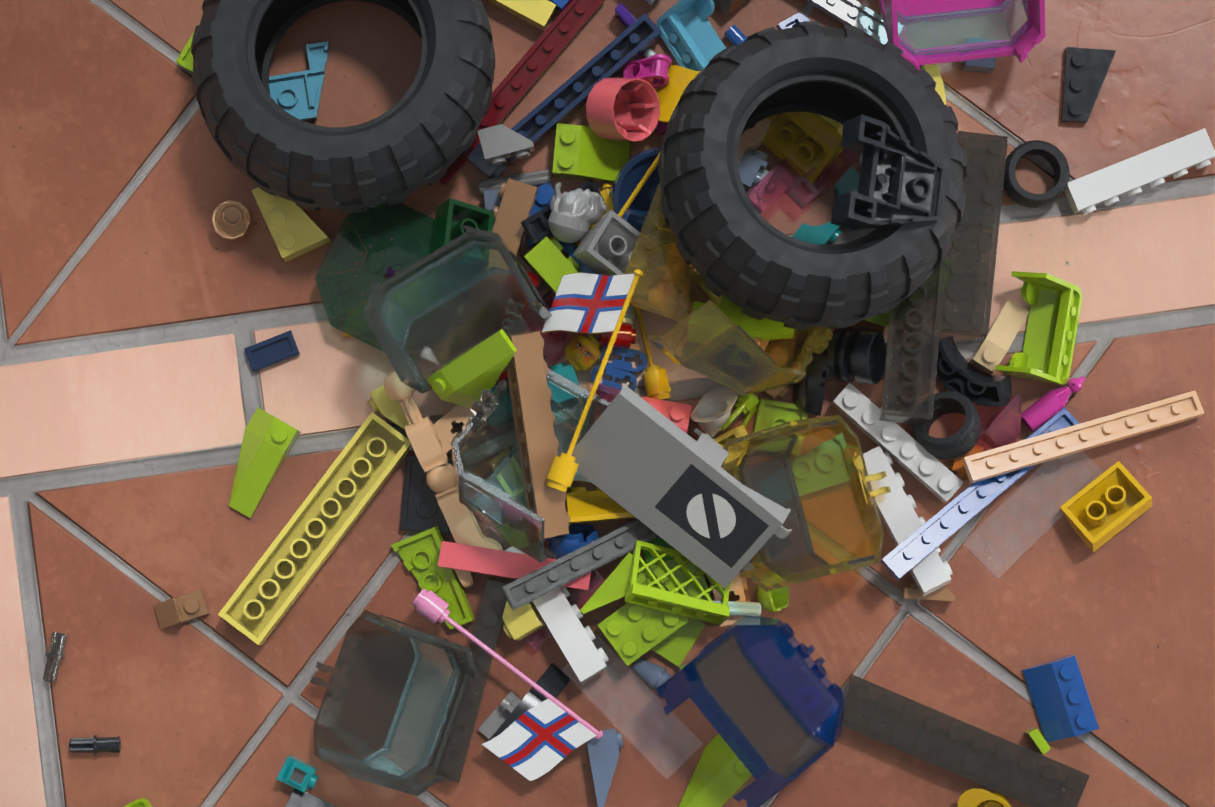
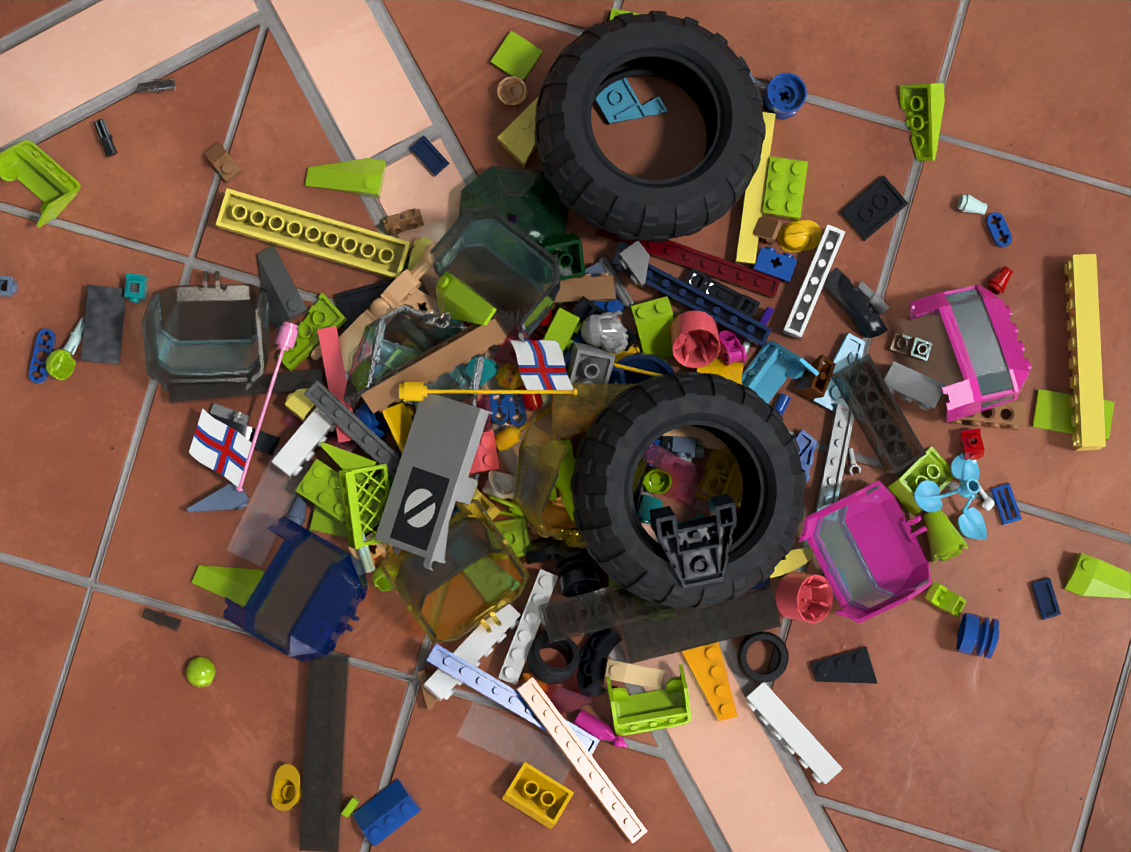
camera: 70 degrees right, 0 degrees up
(189, 200) = (516, 56): none -> lime tile
(342, 424) = (396, 225): none -> medium nougat hinge
(380, 593) = (283, 296): none -> dark grey wedge
(577, 57) = (722, 293): none -> black slope
(779, 217) = (656, 480): none -> lime hair
(984, 95) = (804, 597): none -> coral piece
(1038, 244) = (710, 672): none -> light orange wing

